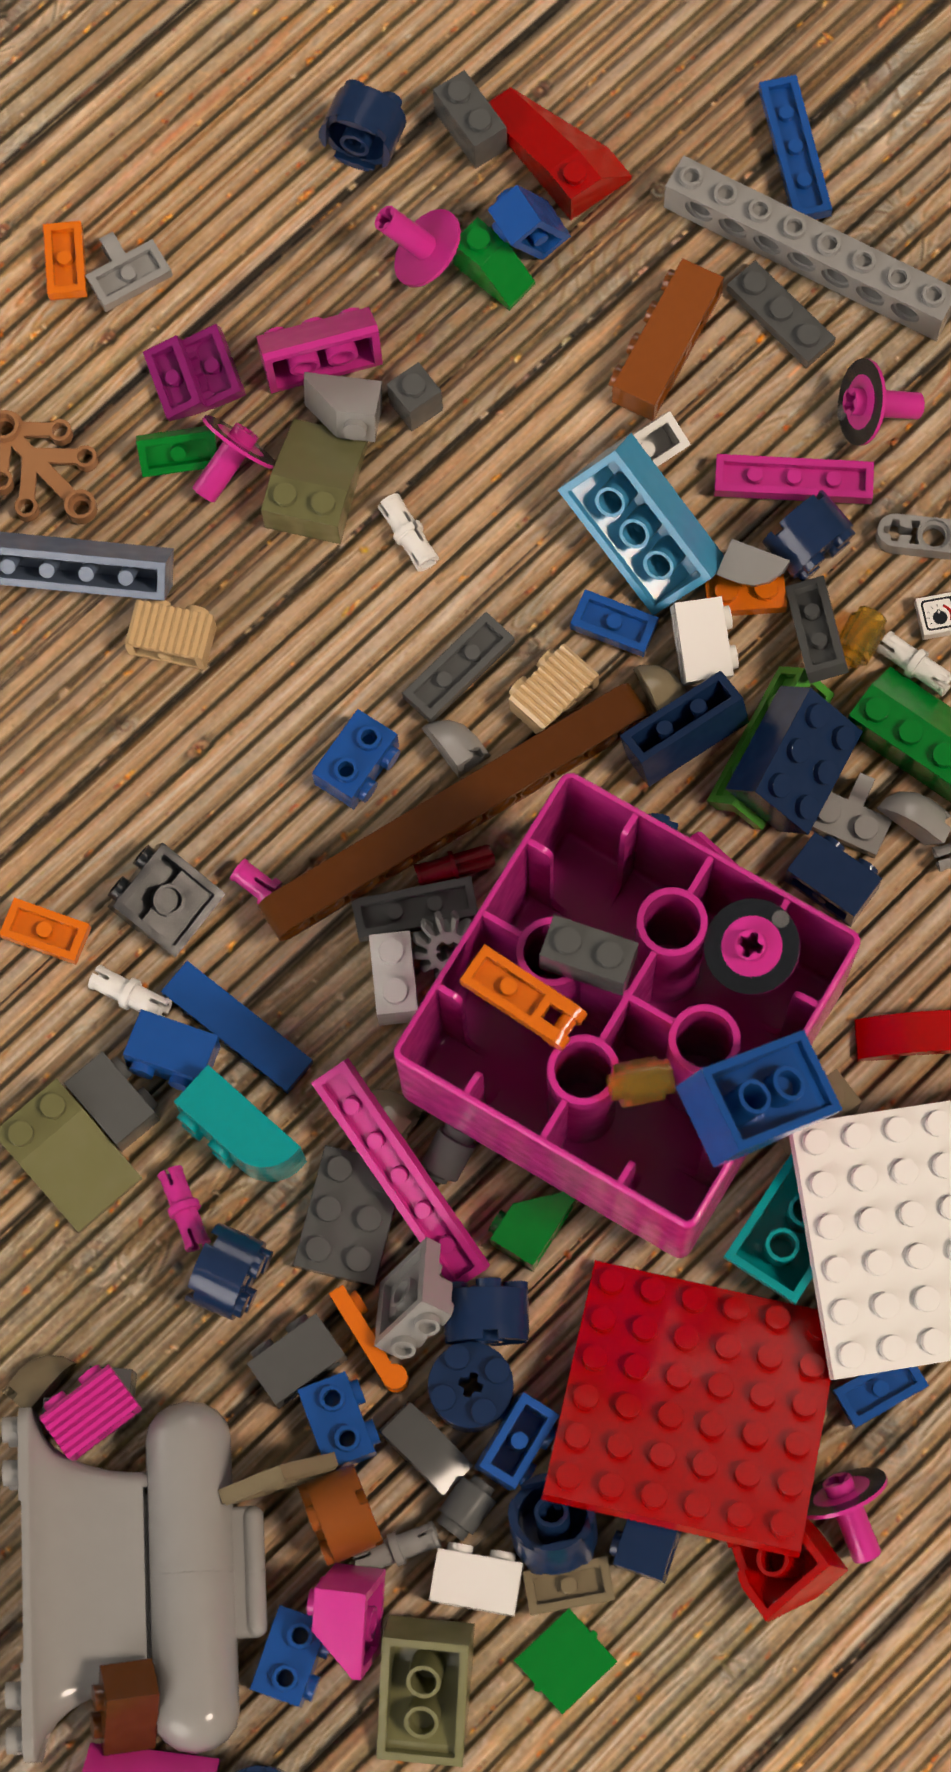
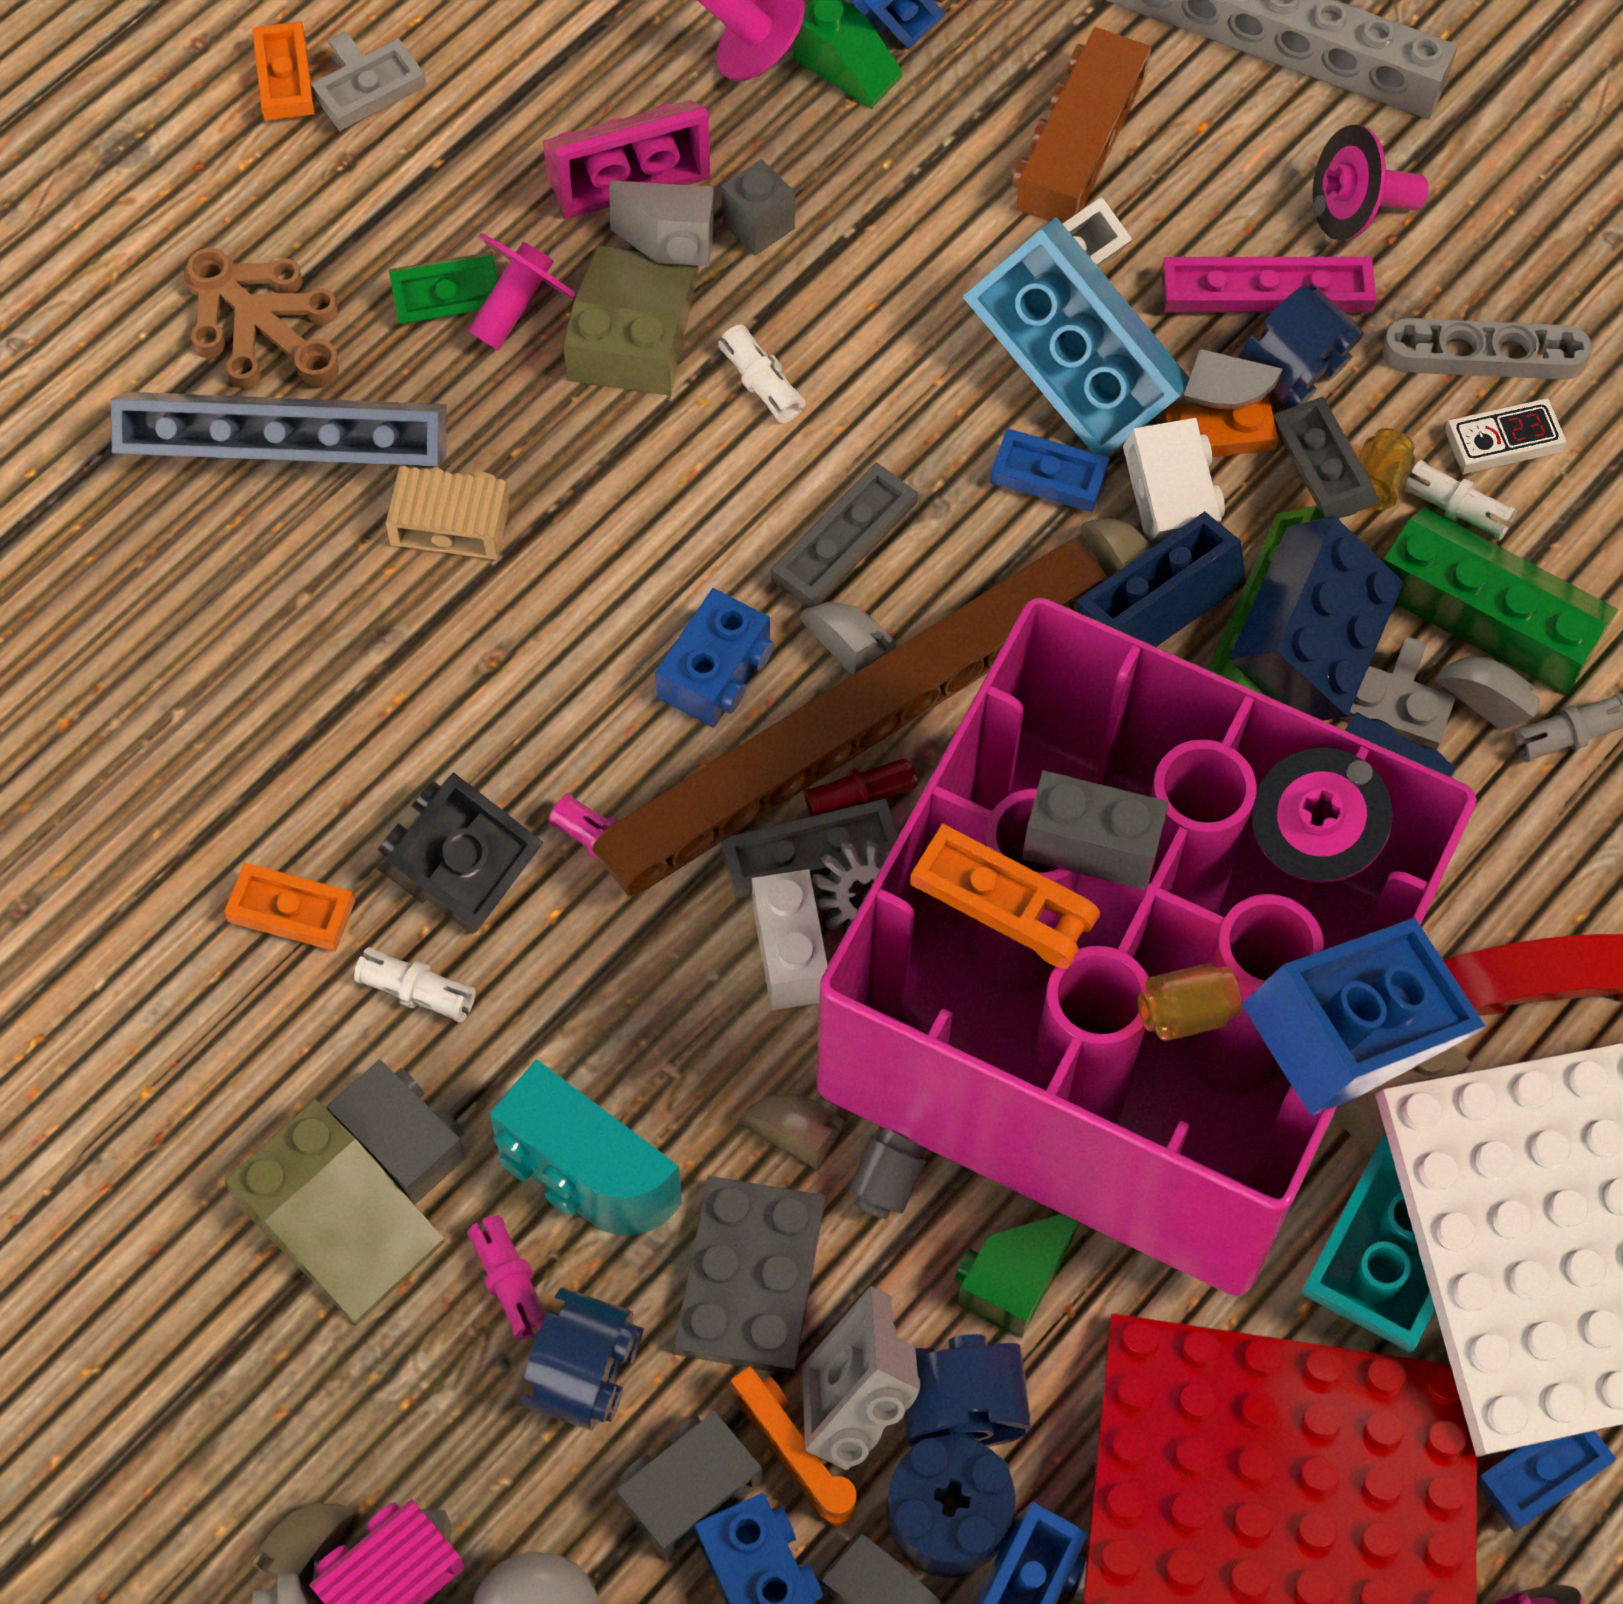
camera: 10 degrees left, 10 degrees down
(169, 1050) = (474, 1052): blue brick -> none
(194, 373) = (461, 197): magenta slope -> none
(237, 1027) = (571, 1022): blue tile -> none
(399, 1170) = (818, 1194): dark pink plate -> none
(553, 689) = (978, 553): tan brick -> none
(780, 314) = (1225, 95): dark grey plate -> none

